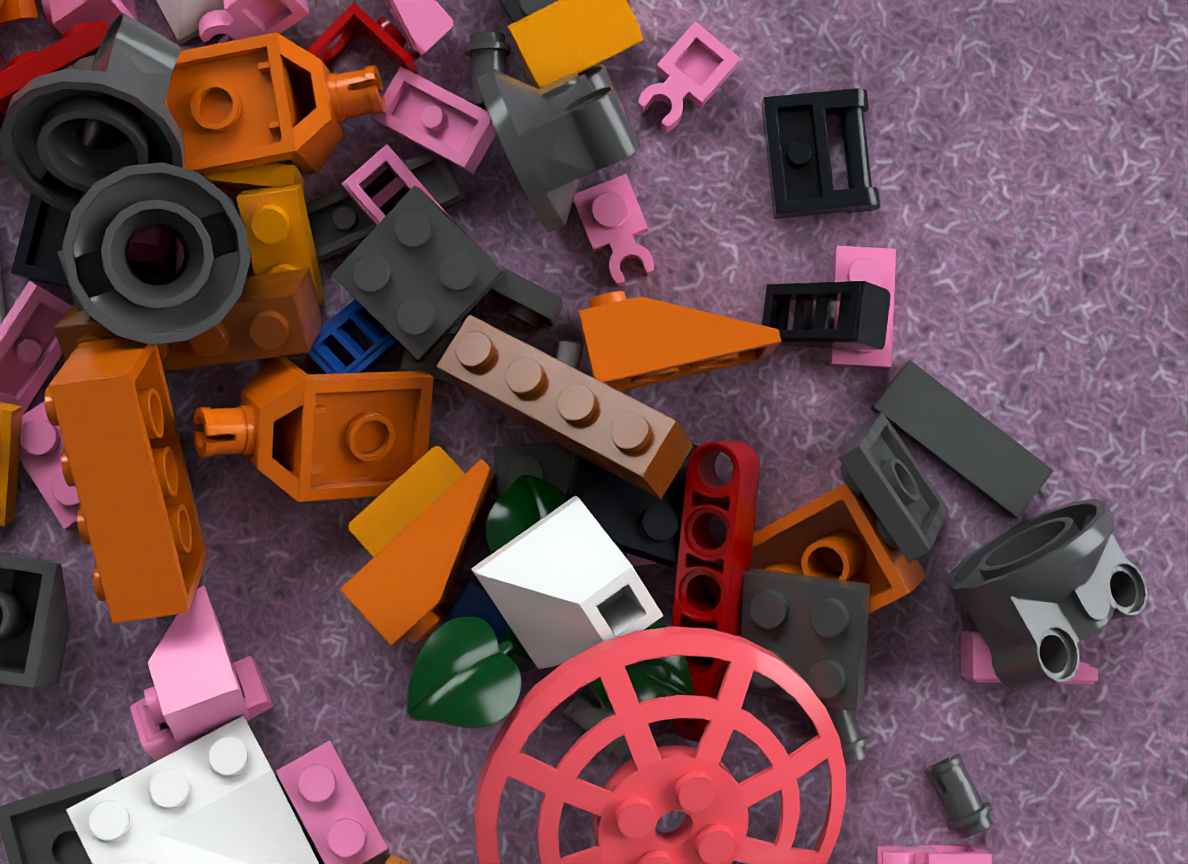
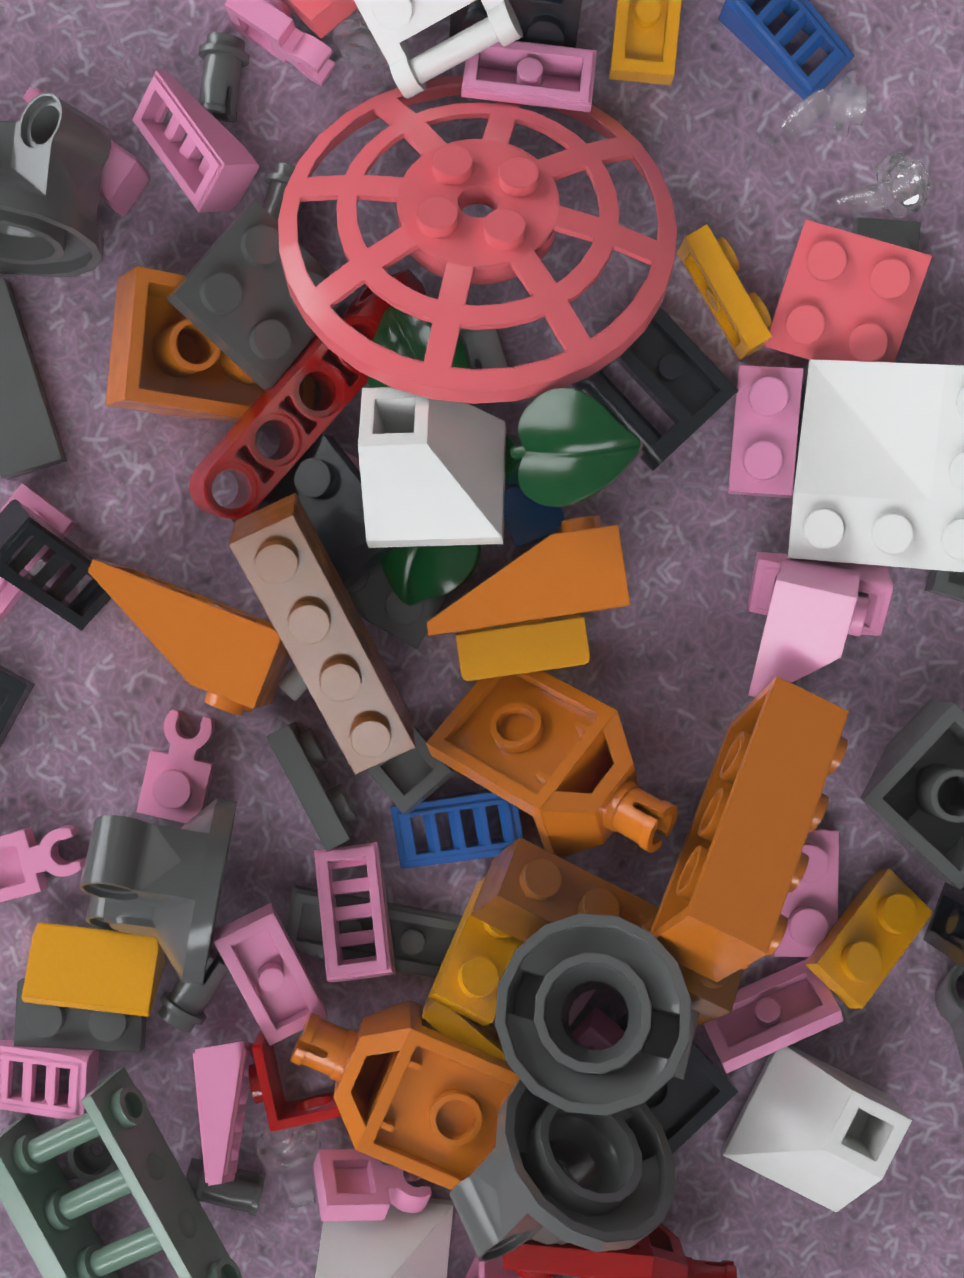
camera: 150 degrees left, 5 degrees up
(418, 273) = (376, 844): dark grey plate -> none
(427, 801) = (674, 376): none -> black plate
(895, 487) = (87, 383): dark grey plate -> none
(905, 725) = (227, 165): none -> bright pink slope

